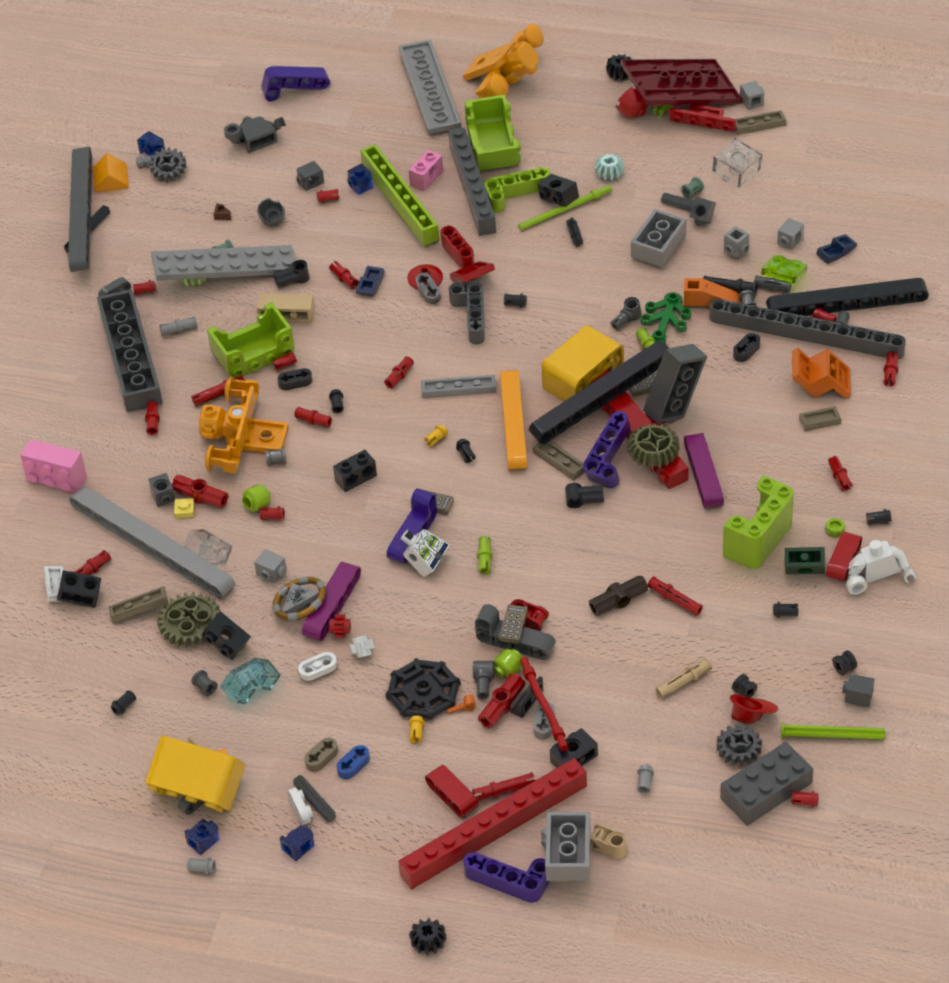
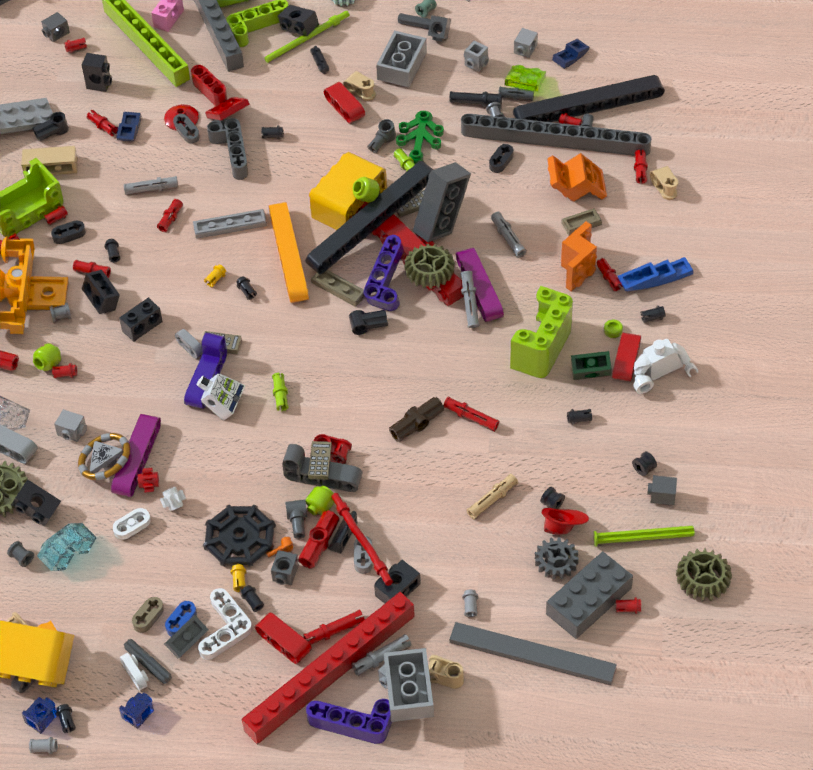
camera: 10 degrees left, 5 degrees up
(226, 838) = (64, 714): none -> black pin
(271, 212) = (22, 66): dark grey hair -> none
(318, 439) = (100, 291): none -> black brick
(345, 224) = (96, 72): none -> black brick
(355, 779) = (186, 636): none -> dark grey plate
(360, 179) = (104, 26): clear blue brick -> none
(380, 341) = (150, 185): none -> light grey pin
(399, 498) = (189, 343): none -> light grey beam
(404, 771) = (233, 623): none -> white beam
(426, 749) = (252, 598): none -> black pin
(463, 724) = (282, 561): none -> dark grey brick
(540, 820) = (374, 658): none -> light grey pin
(593, 277) = (344, 102): none -> red beam
(599, 363) = (366, 189): none -> lime head
(612, 262) = (360, 86): none -> tan piece
(690, 485) = (472, 319): none -> light grey pin
(701, 292) = (451, 108): orange slope -> none
(701, 834) = (533, 653): none -> dark grey tile
(738, 417) = (504, 229): none -> light grey pin
(809, 451) = (578, 256): none -> orange bracket
(884, 479) = (655, 275): none -> blue slope
(887, 784) = (705, 581): none -> olive gear
(913, 387) = (665, 182): none -> tan piece

